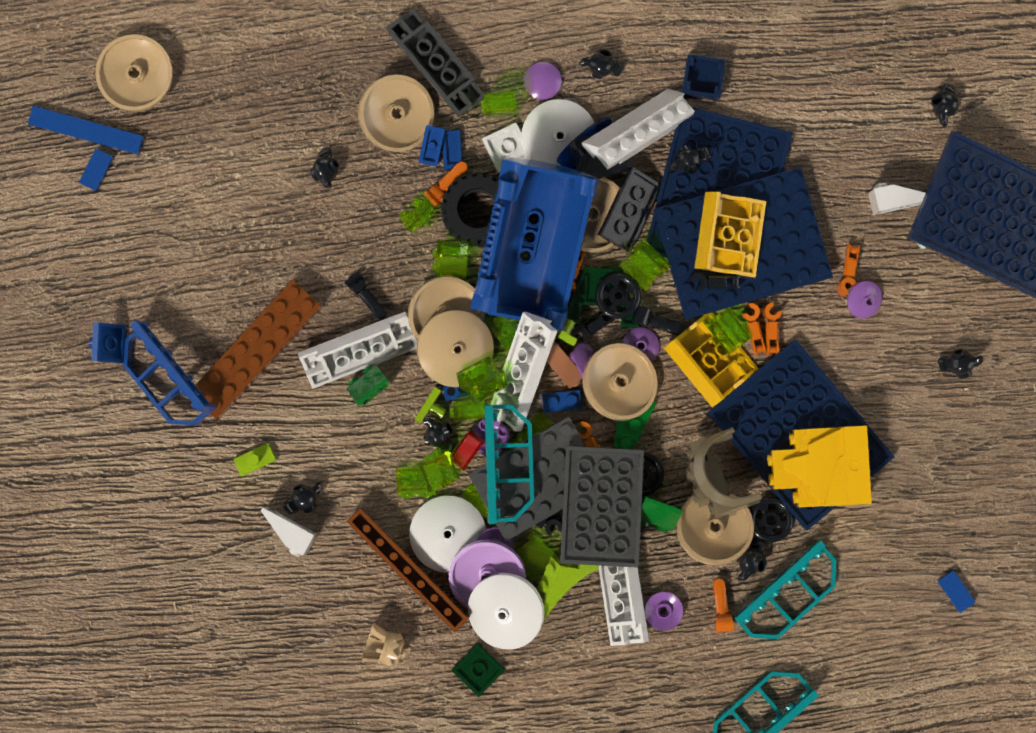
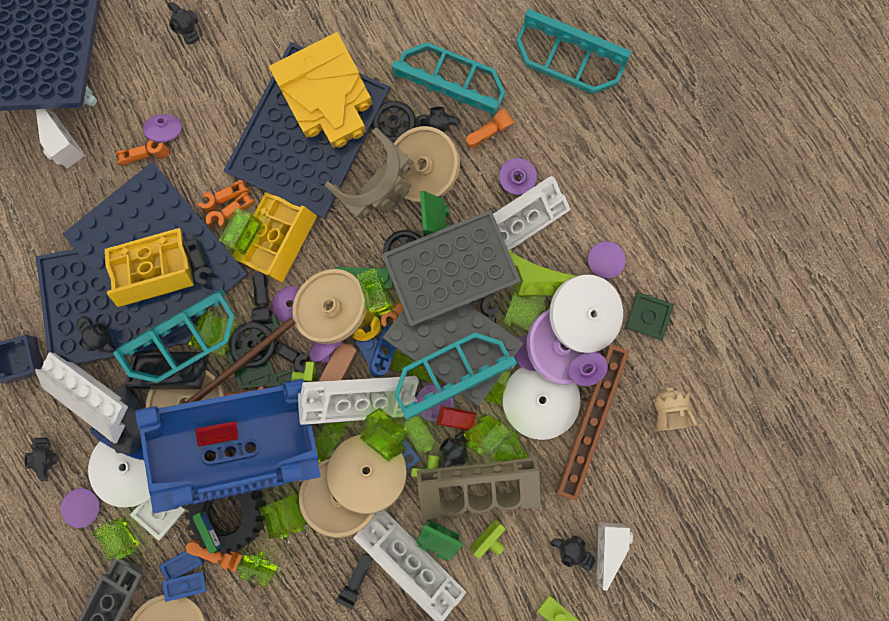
camera: 115 degrees left, 5 degrees down
(347, 429) = (488, 540): none -> lime tile
(371, 479) = (526, 494): none -> dark tan fence
(461, 587) = (586, 363): none -> medium lavender dish
(468, 190) = (207, 532): none -> green tile
(548, 656) = (606, 259): none -> medium lavender dish
(550, 233) = (216, 433): none -> red tile
(554, 404) = (377, 356): none -> blue beam
(581, 414) = (371, 320): none -> yellow piece
(605, 280) = (242, 361): none -> reddish brown piece
(612, 428) = (375, 292): none -> clear neon green hips
(667, 226) = (164, 328): none -> teal plate

